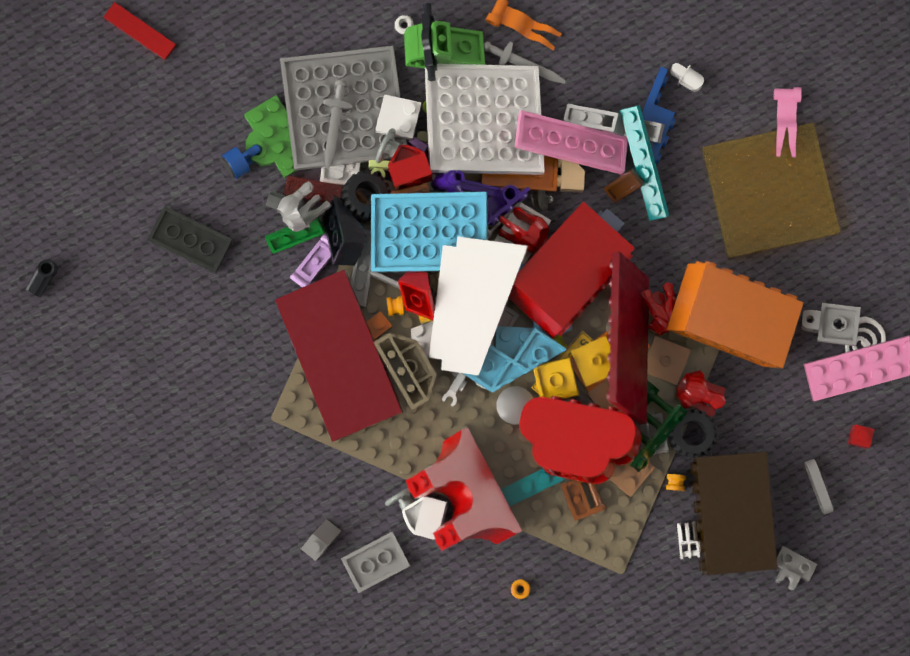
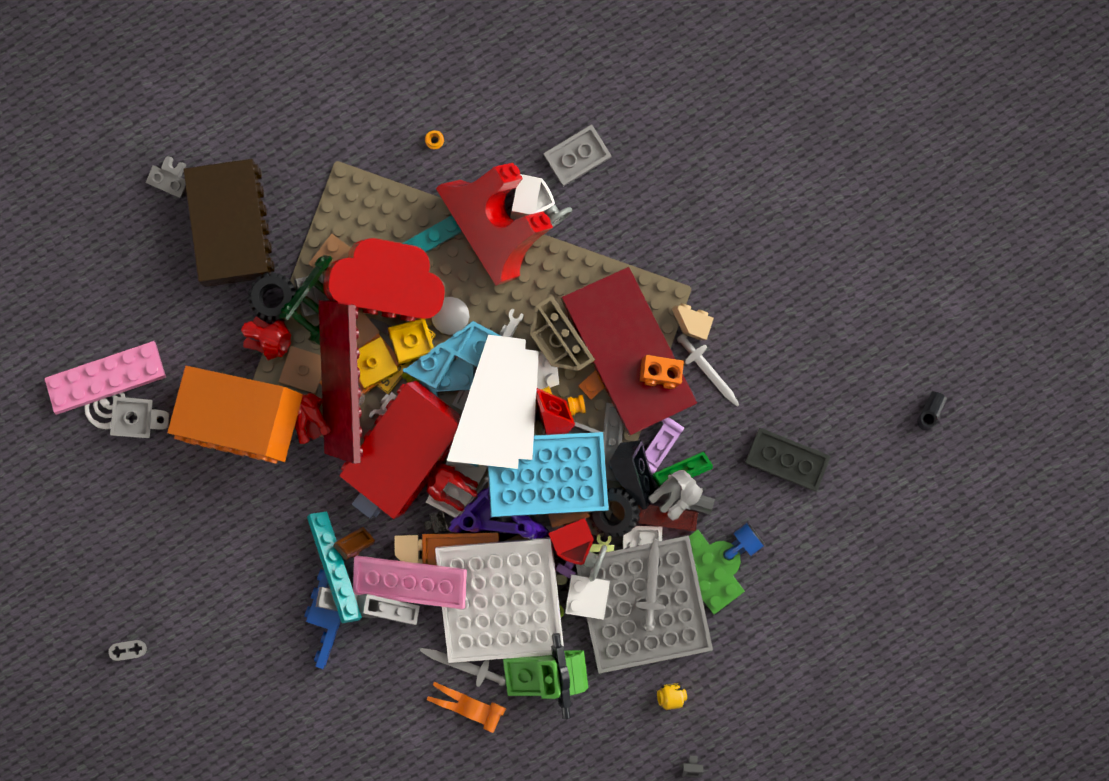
camera: 170 degrees right, 0 degrees up
(139, 31) = (859, 672): red tile -> none
(271, 380) = (691, 322): none -> tan slope
(272, 350) = (696, 355): none -> light grey sword
(307, 334) = (661, 366): none -> orange brick
(320, 540) = (632, 172): light grey slope -> none
(323, 19) = (671, 696): none -> yellow head
(400, 20) = (593, 702): white plate -> none
(577, 499) = (382, 224): dark orange plate -> none
(582, 322) = (386, 399): none -> white plate
(676, 482) = (287, 251): light orange wheel -> none
(687, 77) = (294, 661): white arm -> none
(689, 553) = (272, 194): white arm -> none
(767, 197) = (205, 550): clear yellow plate -> none
(786, 117) = (191, 626): bright pink flag -> none
(819, 486) = (146, 257): light grey beam -> none
(850, 95) = (126, 645): none -> light grey beam
(860, 436) = (106, 308): red brick -> none

